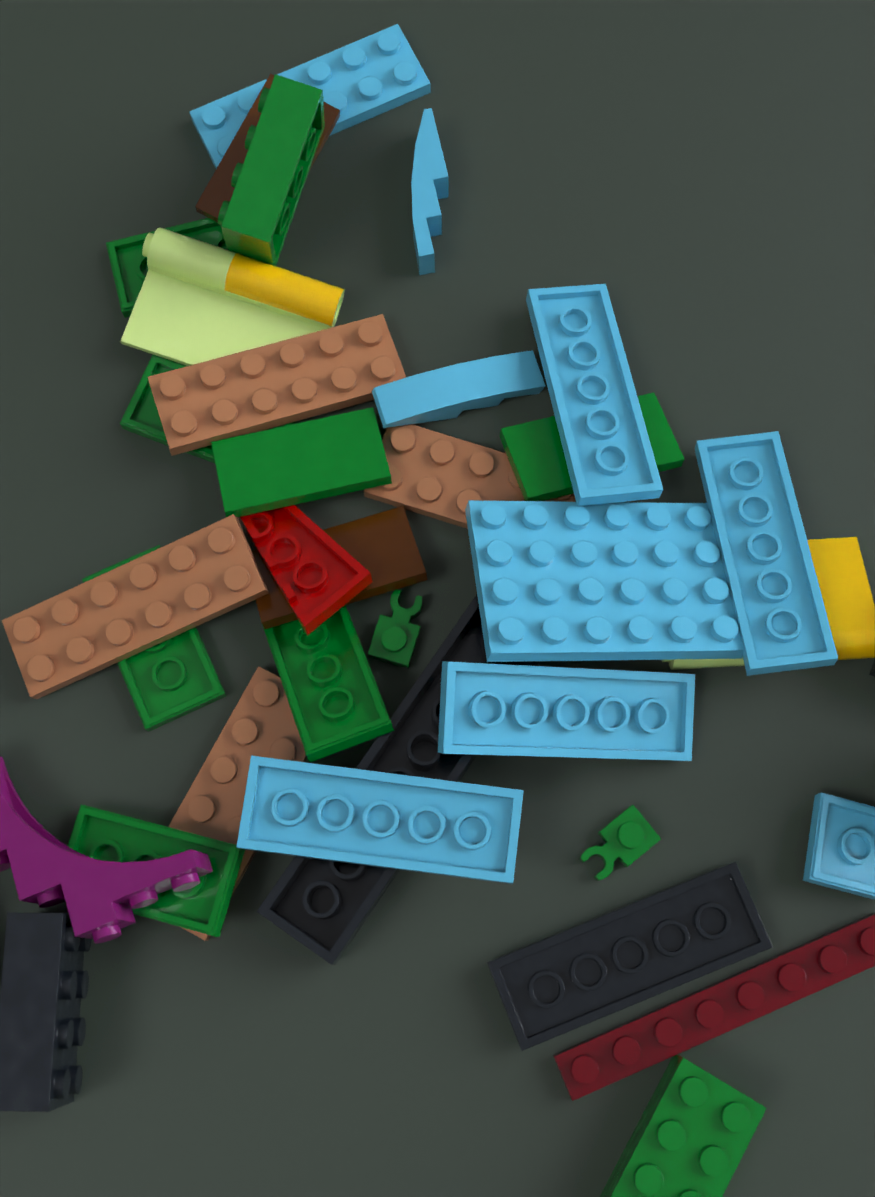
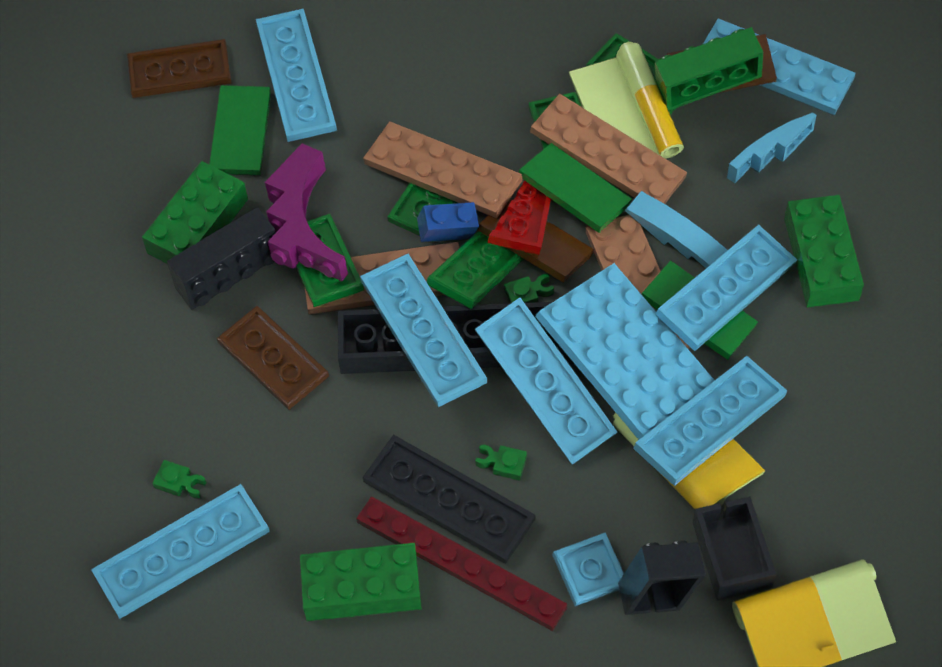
camera: 55 degrees right, 15 degrees down
(225, 660) = (447, 222): none -> blue brick
(238, 1040) = (273, 357): none -> reddish brown tile
(618, 243) = (823, 251): none -> green brick

